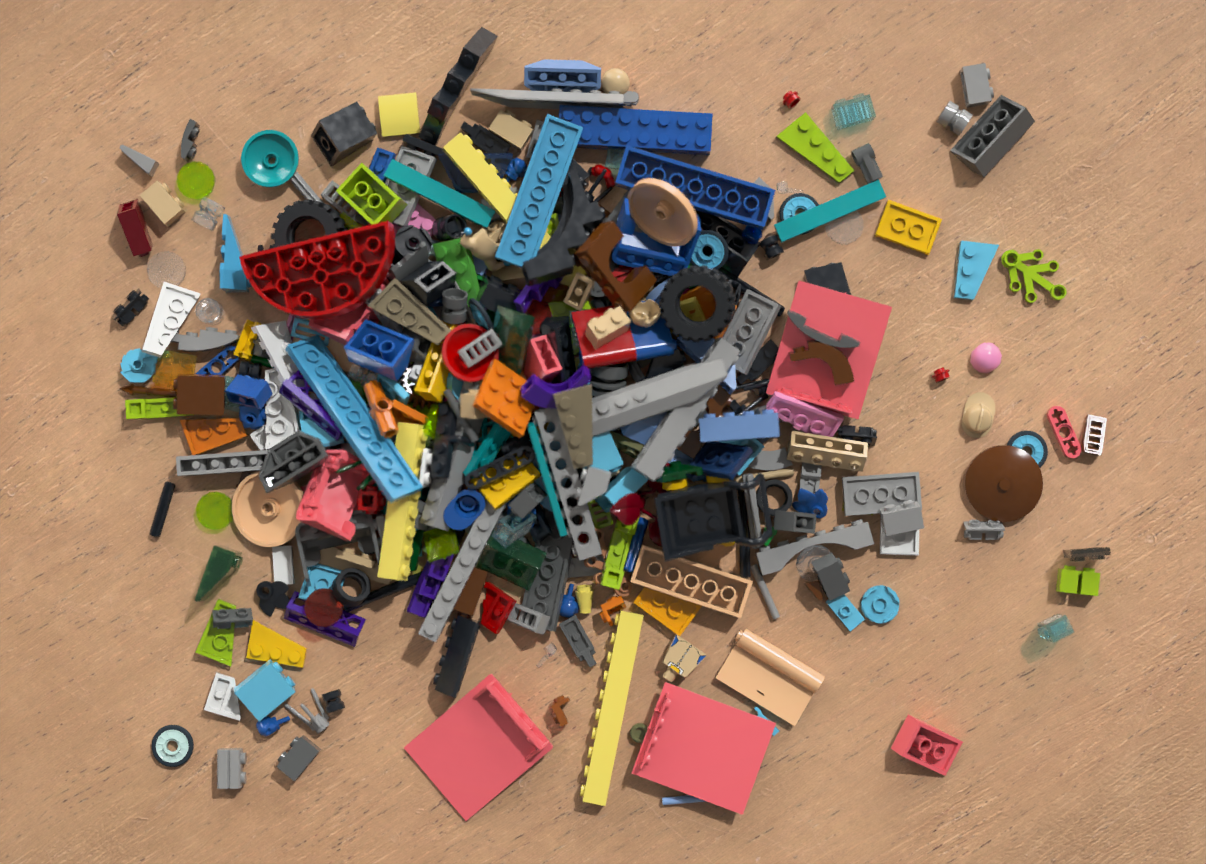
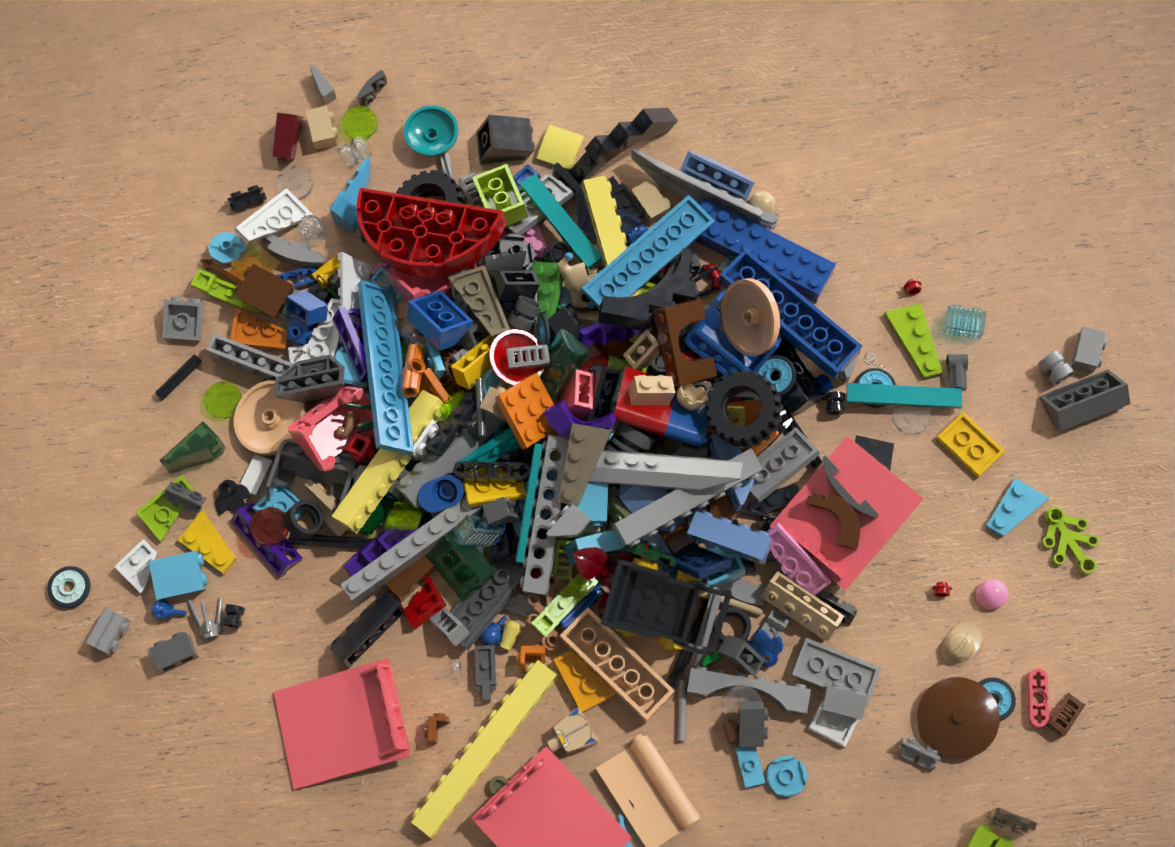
camera: 25 degrees right, 15 degrees down
(137, 453) = (183, 319): none -> light grey plate
(348, 483) = (349, 426): none -> medium nougat arm

